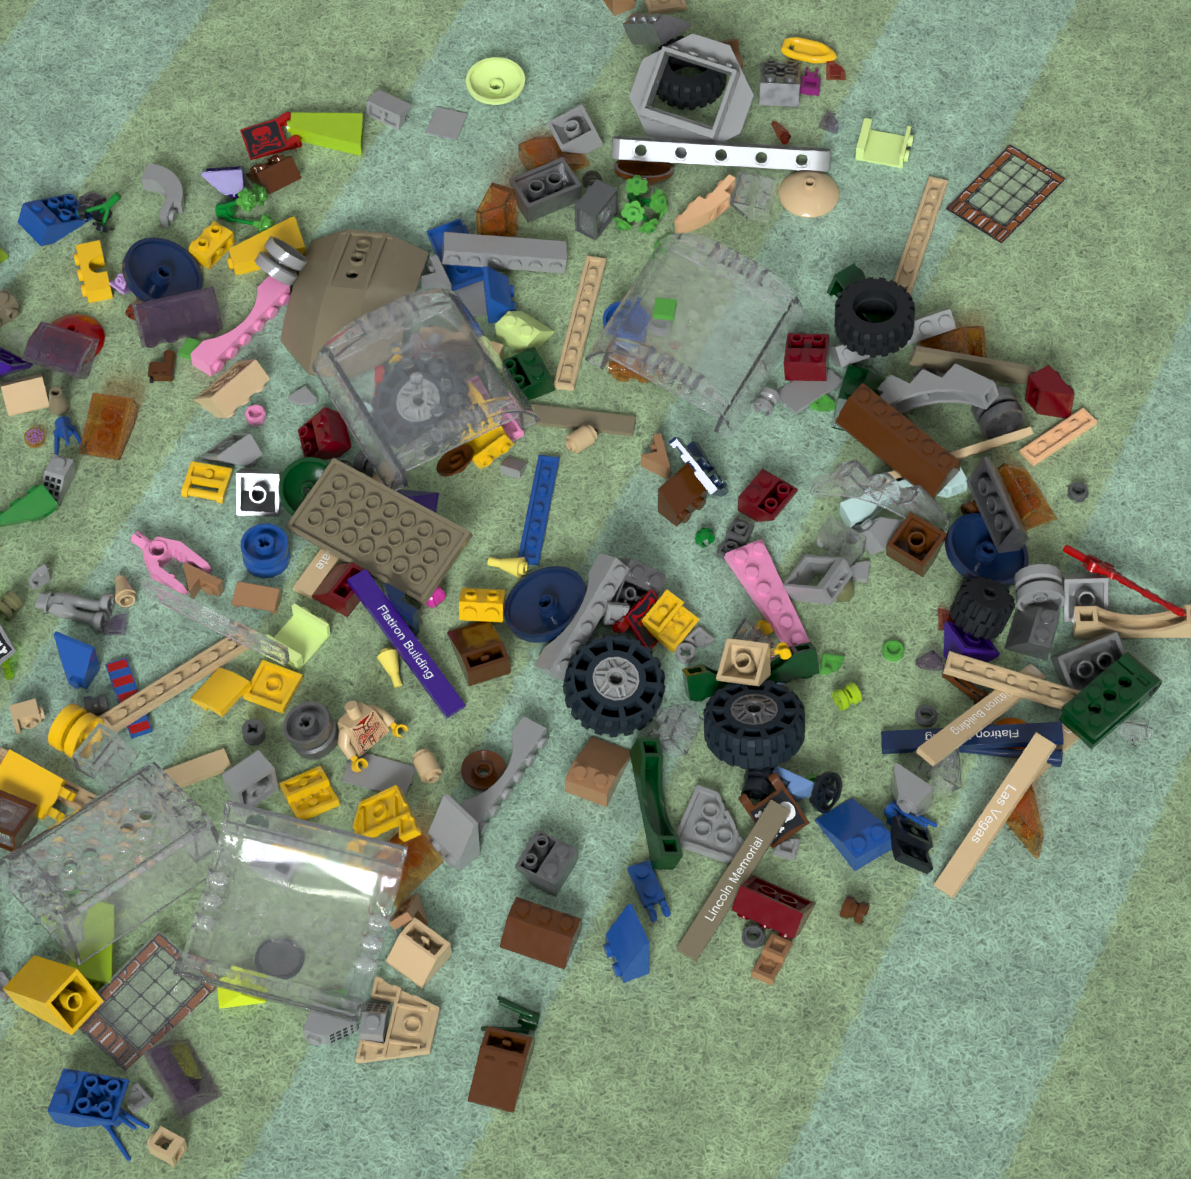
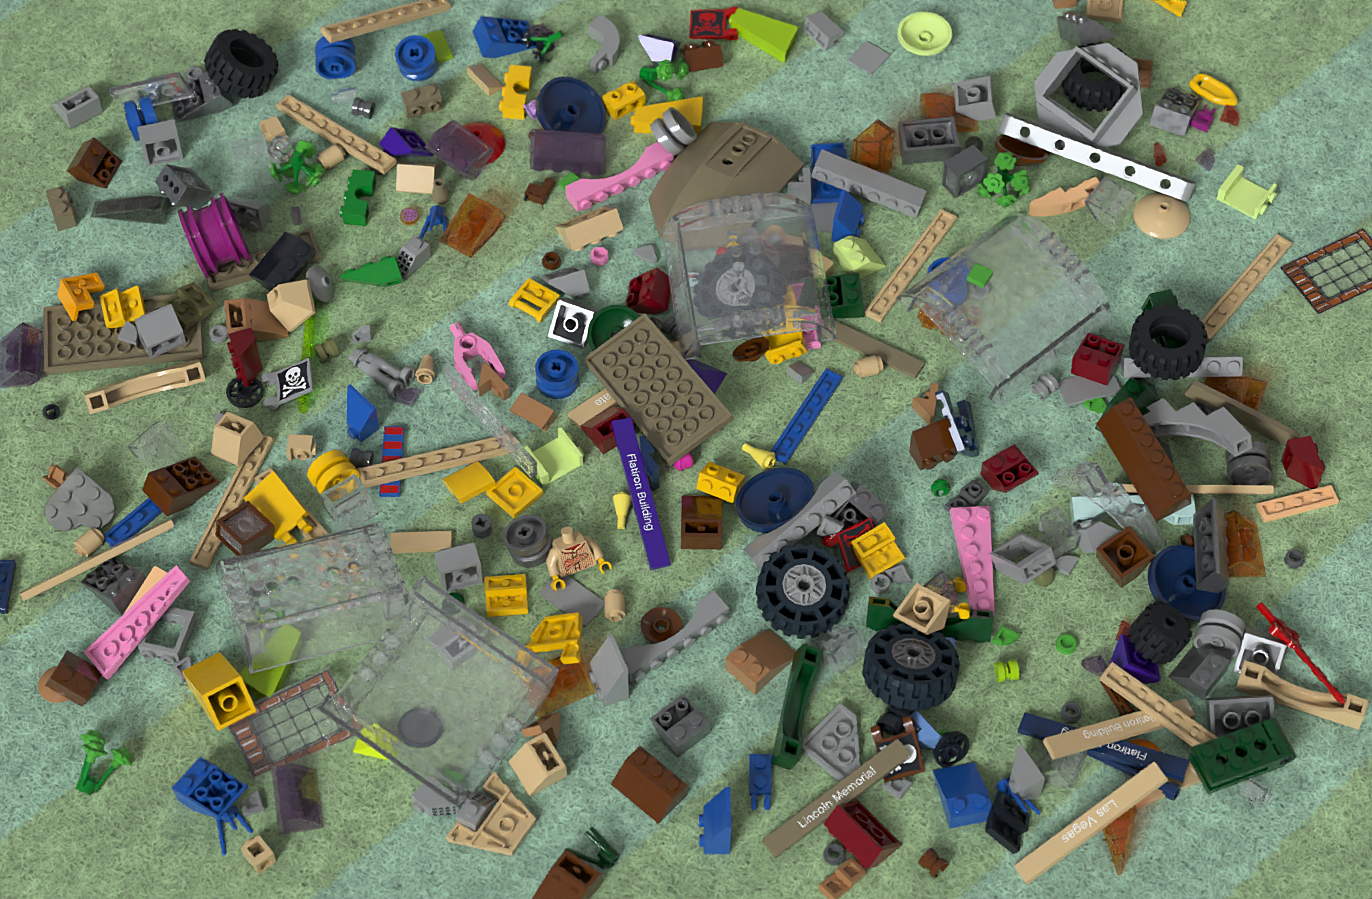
camera: 20 degrees right, 0 degrees up
(52, 269) = (484, 79): none -> tan slope
(206, 431) = (551, 265): none -> reddish brown plate

